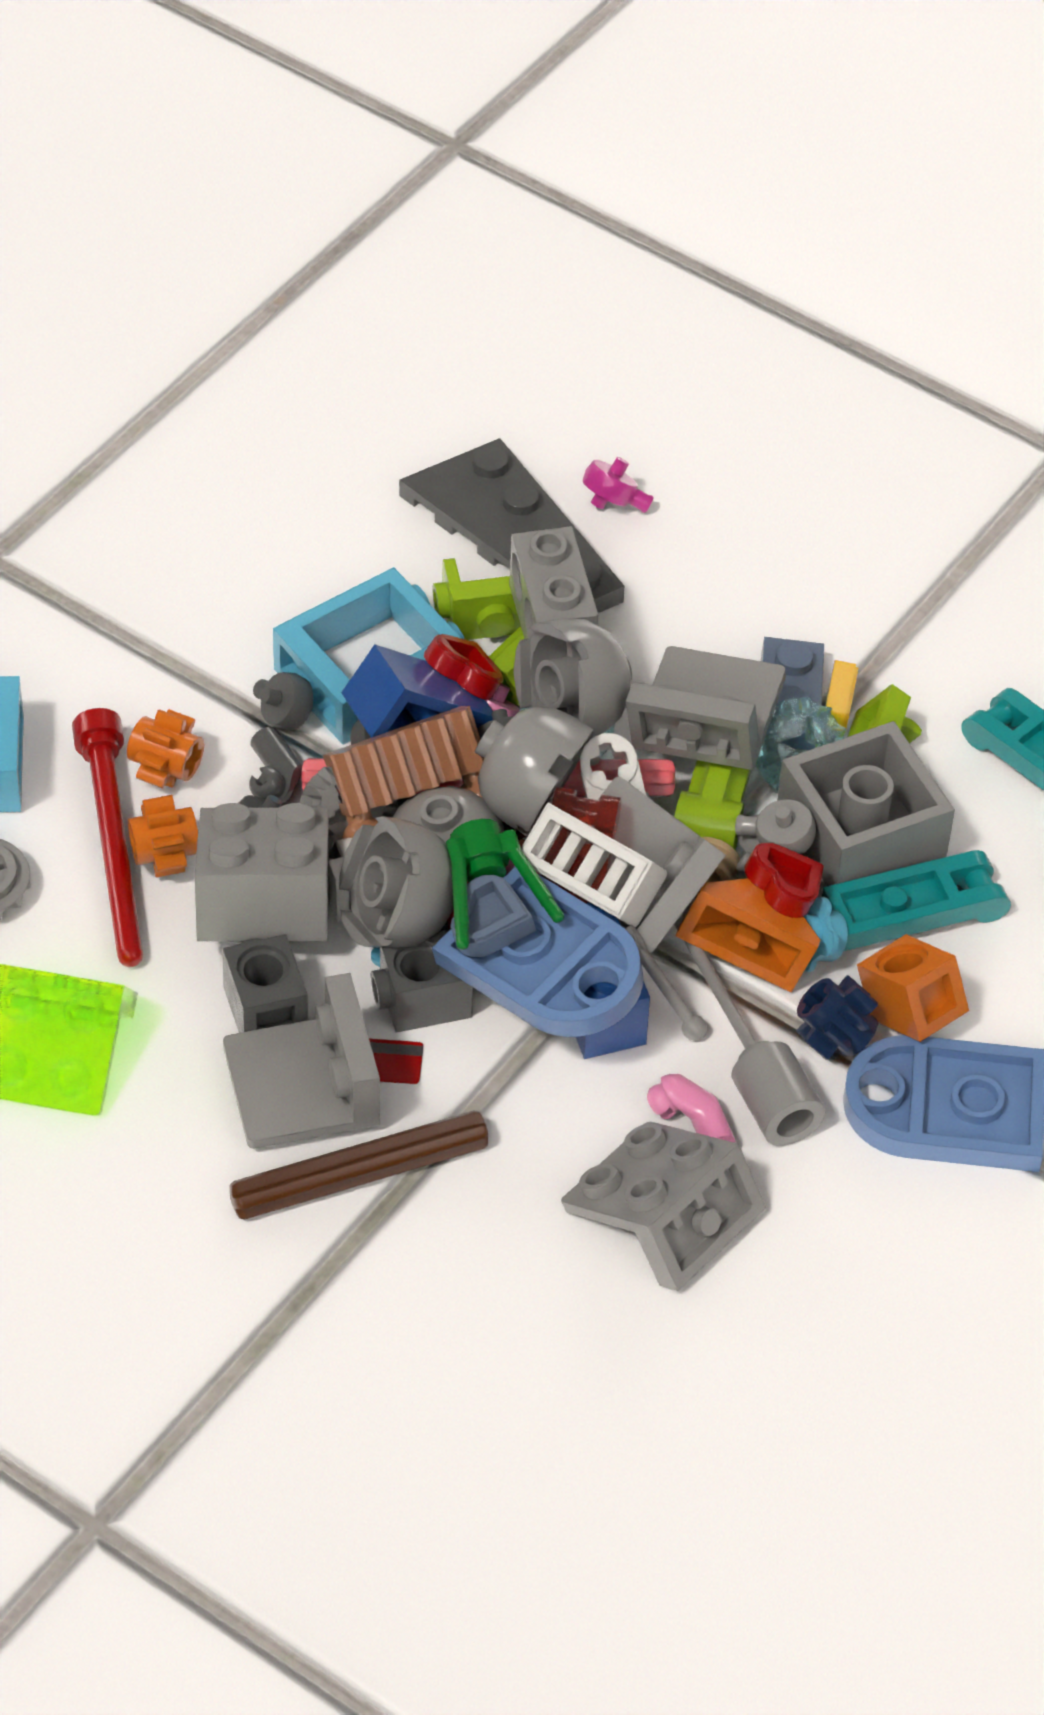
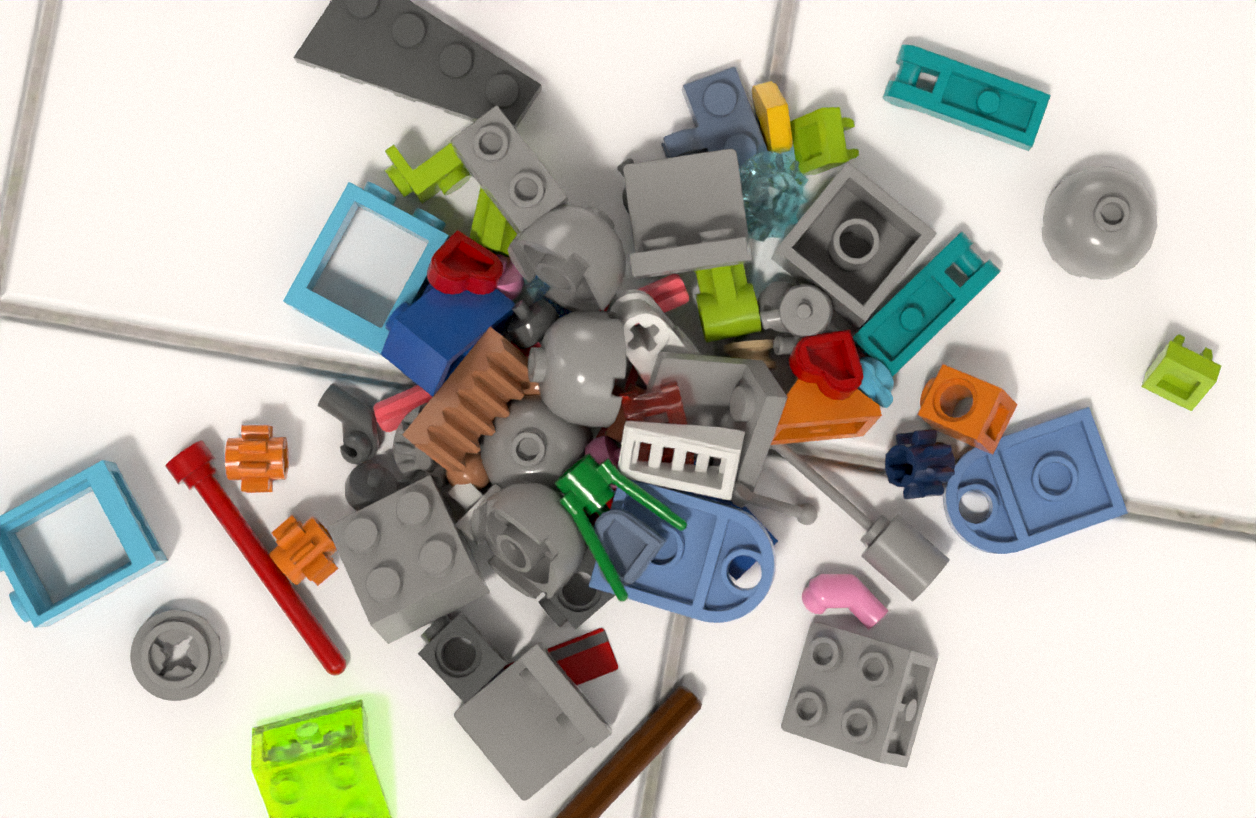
camera: 25 degrees left, 35 degrees up
(285, 700) = (324, 352): dark grey piece -> none

